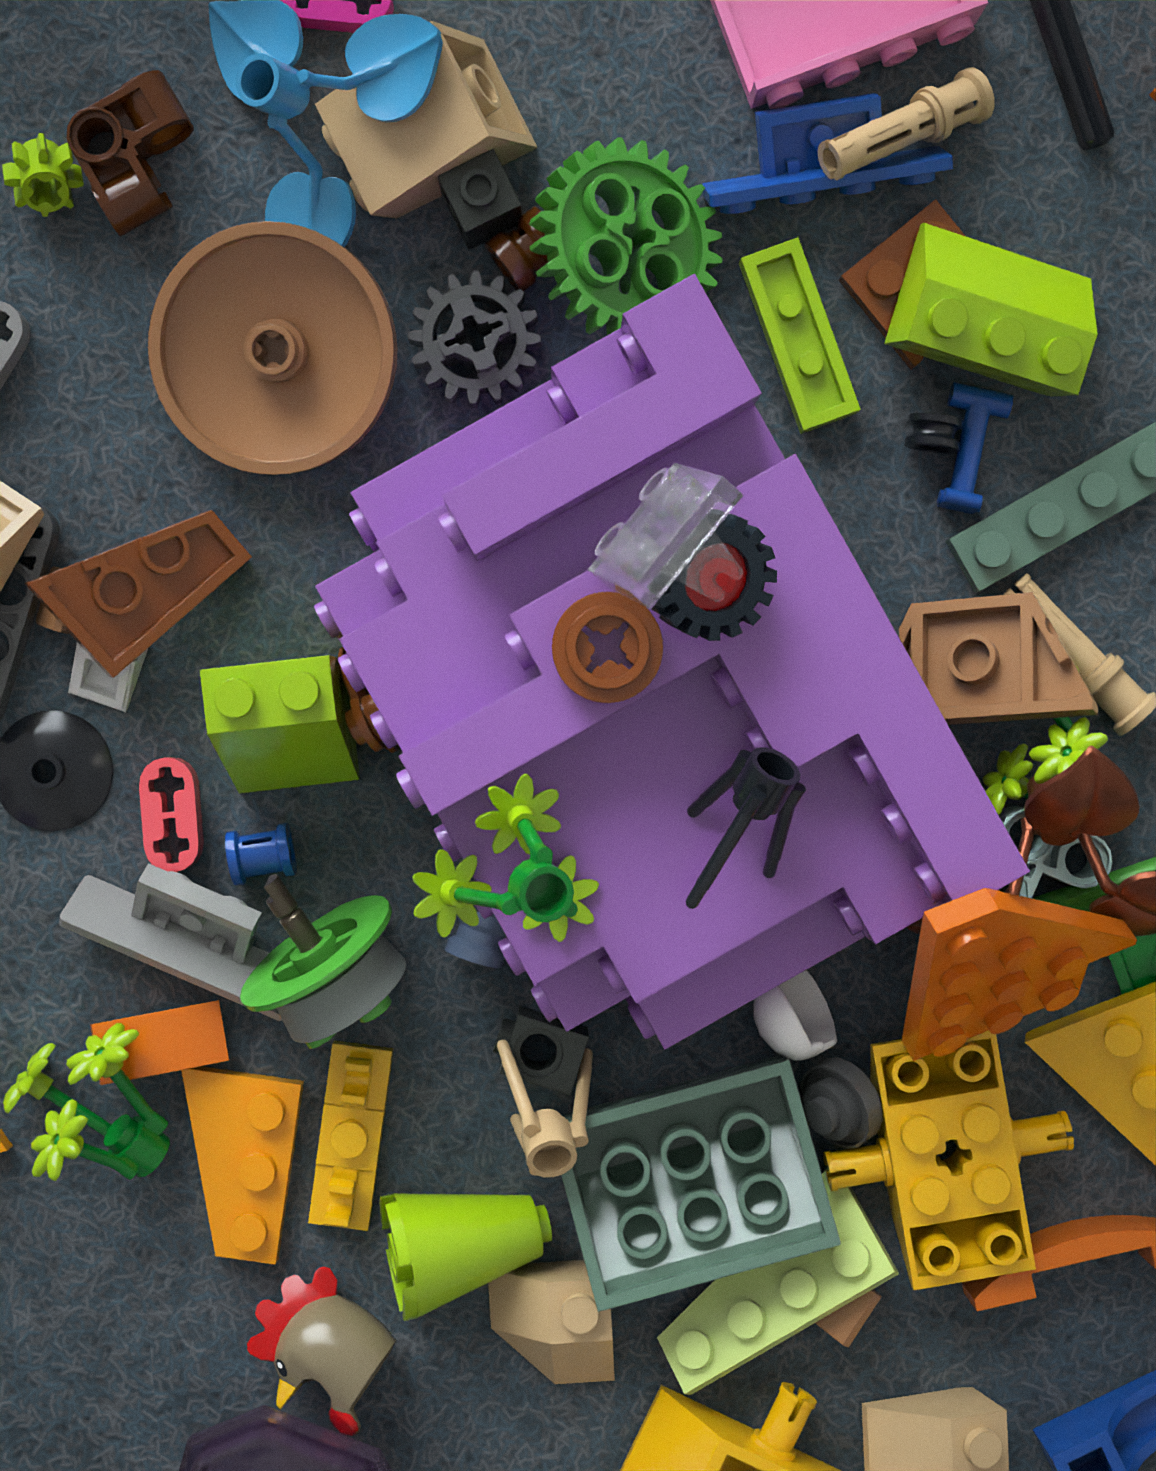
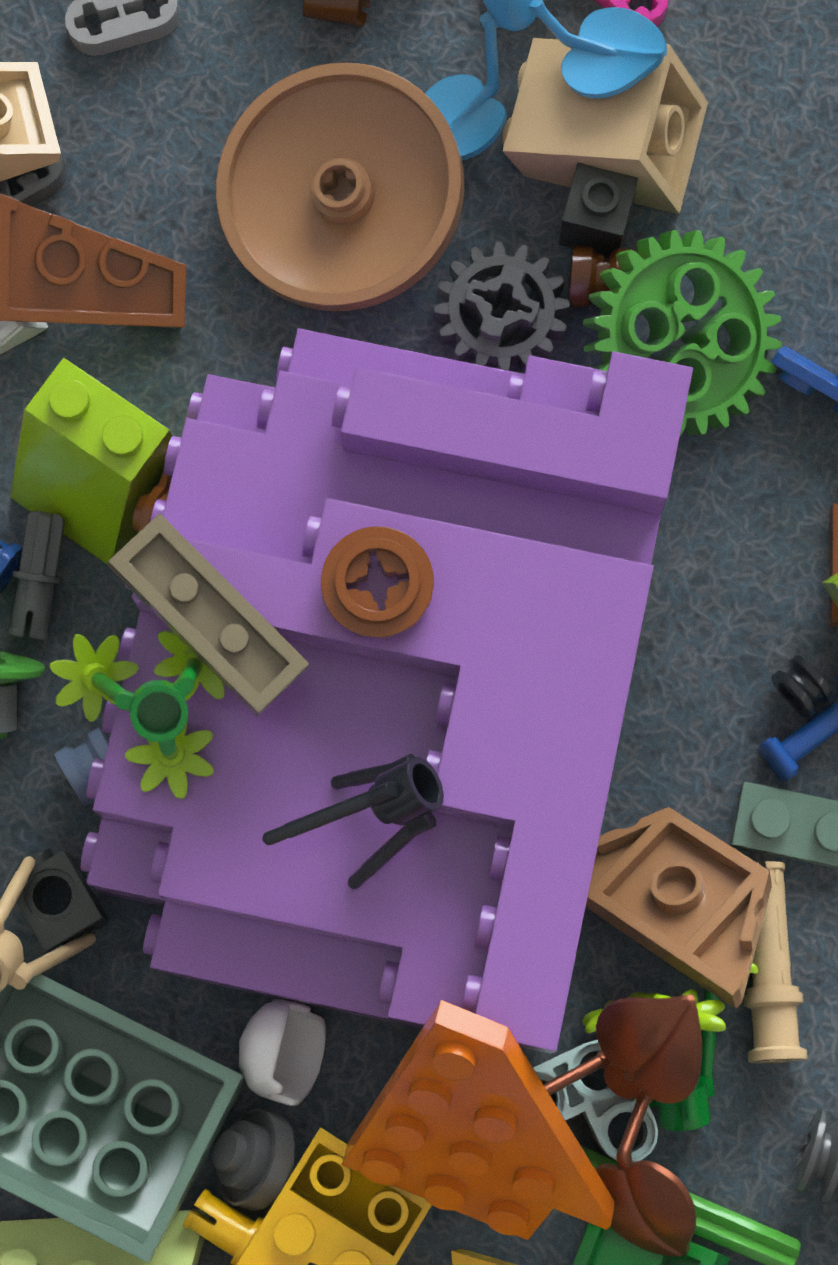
camera: 45 degrees right, 10 degrees down
(314, 834) = (37, 574): none -> dark grey axle
(506, 782) = (208, 615): none -> dark tan plate
(688, 555) = (498, 572): clear plate -> none
(799, 335) = (759, 521): lime plate -> none

